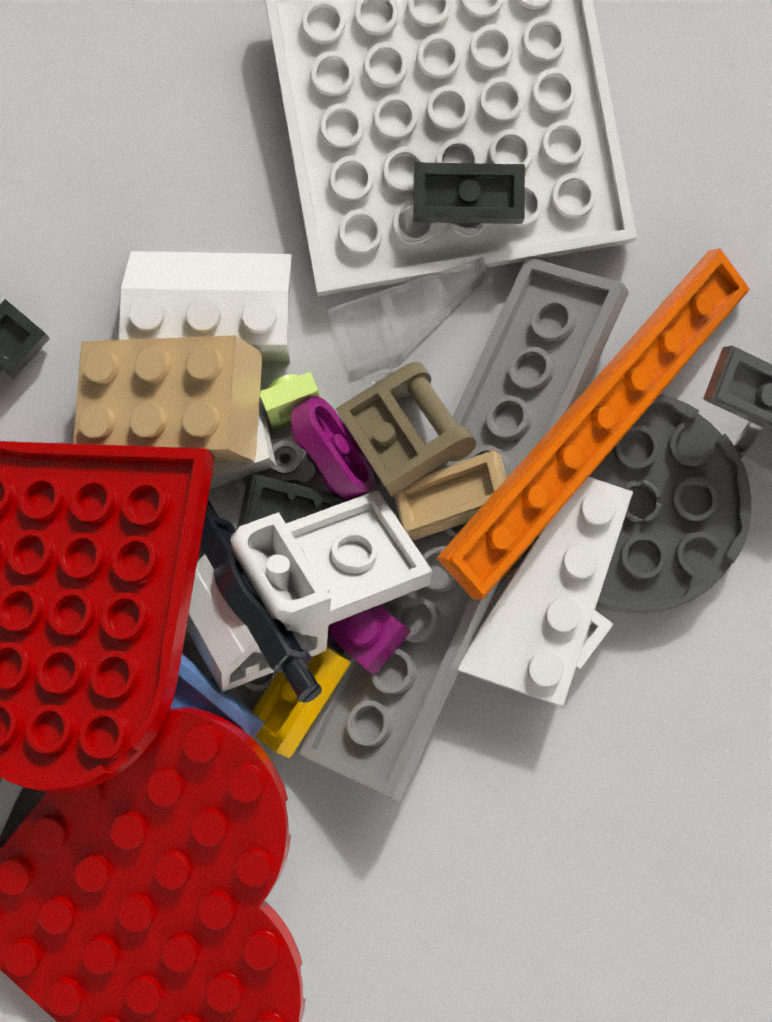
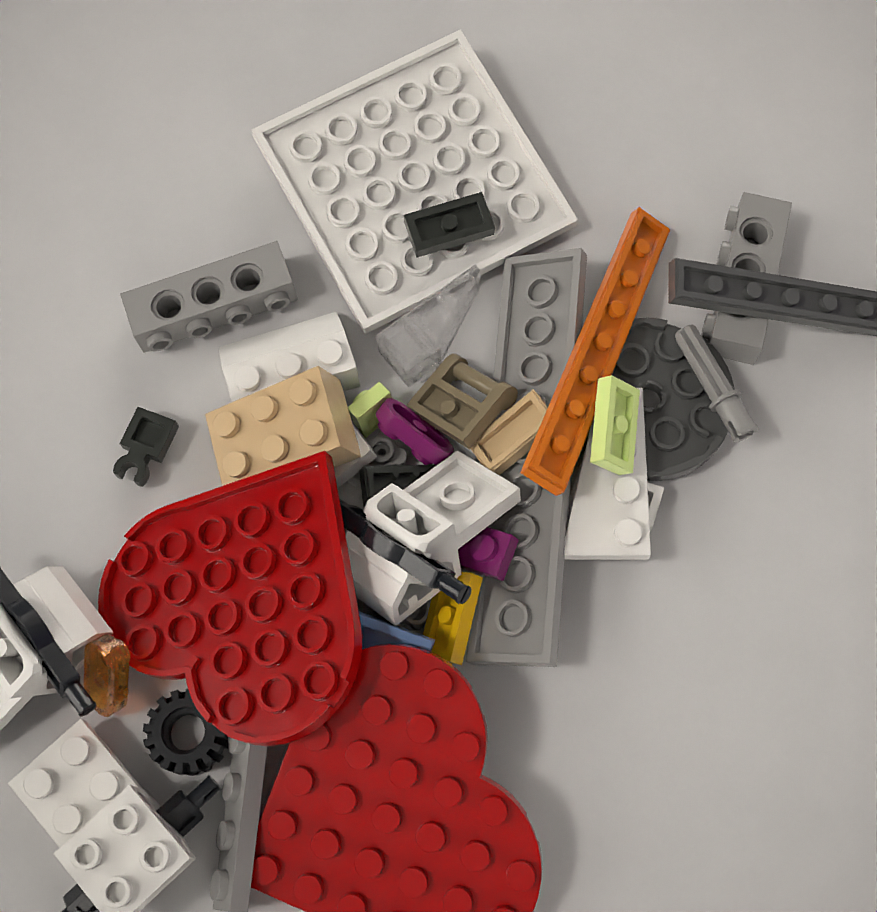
camera: 10 degrees left, 10 degrees down
(58, 169) = (190, 289): none -> light grey brick
(577, 534) = (615, 425): none -> yellowish green plate
(728, 542) = (723, 397): none -> light grey axle

